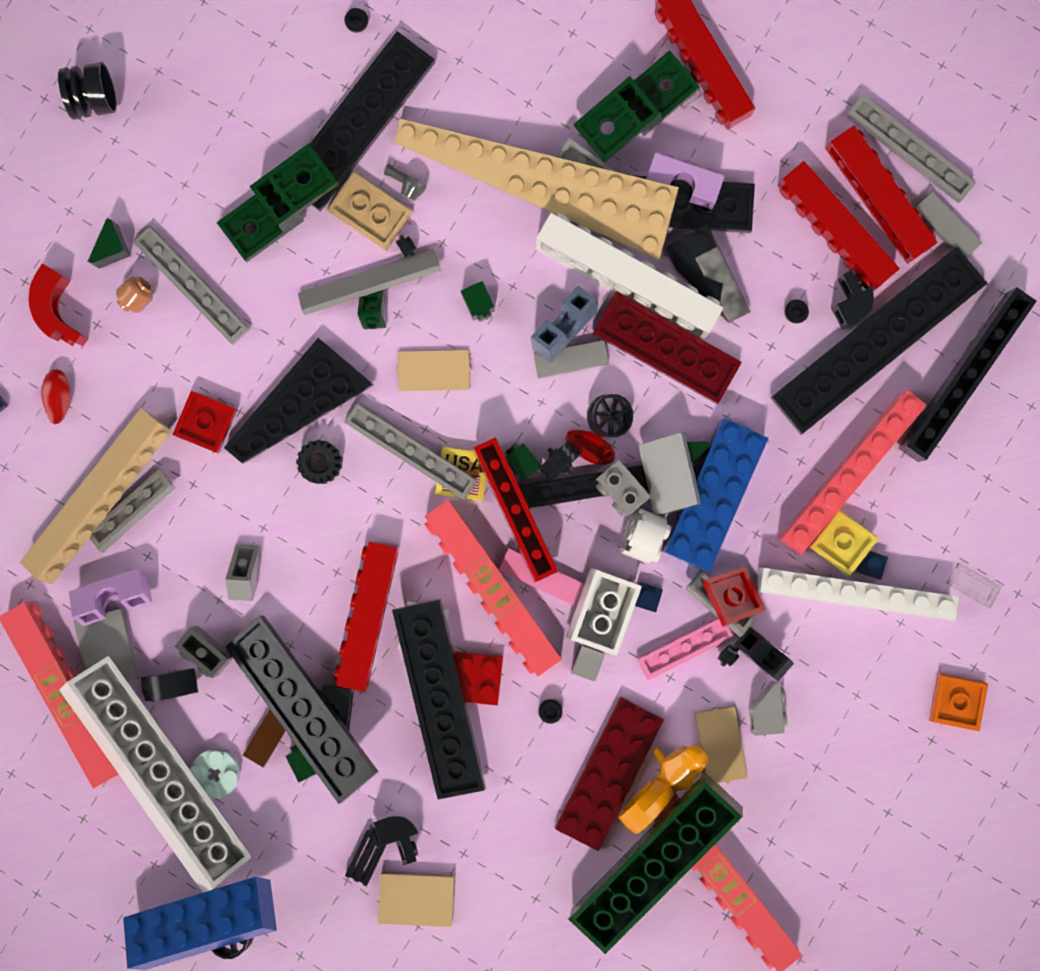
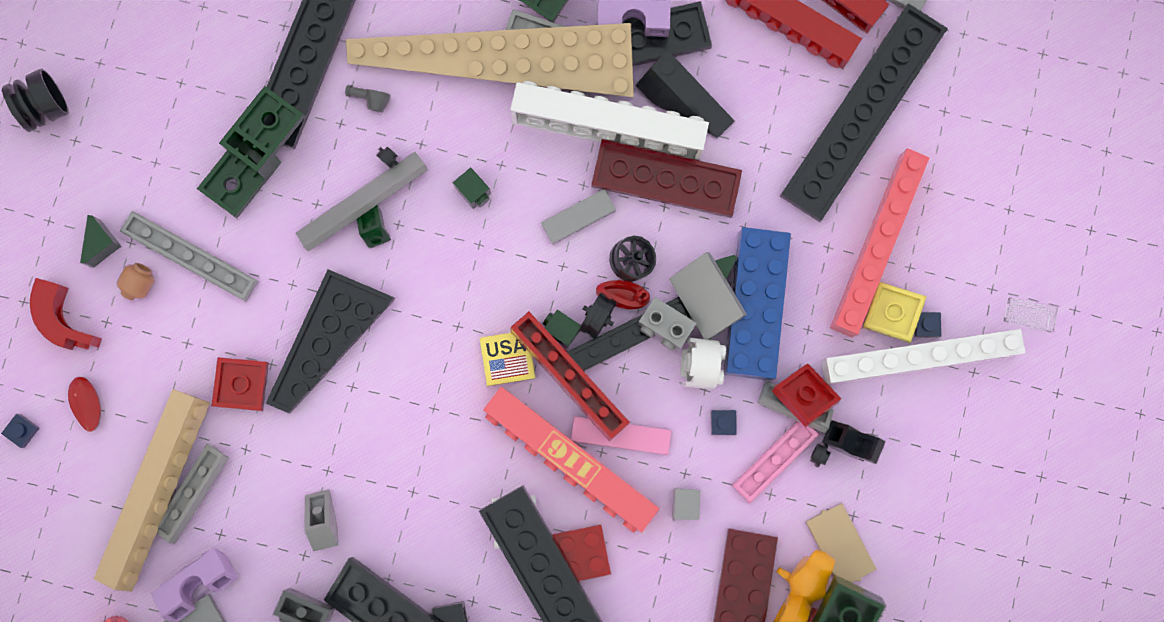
camera: 20 degrees left, 5 degrees down
(311, 449) = (353, 378): black tyre -> none
(367, 616) = (456, 526): red brick -> none
(369, 211) = (342, 134): tan tile -> none
(411, 451) = (450, 351): light grey tile -> none
(433, 370) = (449, 267): tan piece -> none
(550, 719) = (671, 567): black plate -> none
(575, 314) = (569, 172): sand blue arch -> none
(603, 611) = (685, 448): white brick -> none
(767, 712) = (874, 497): light grey slope -> none
(803, 308) = (778, 101): black plate -> none
(857, 303) = (832, 83): black brick -> none
(958, 702) = (1054, 431): orange tile -> none
(967, 374) = (957, 119): black brick -> none

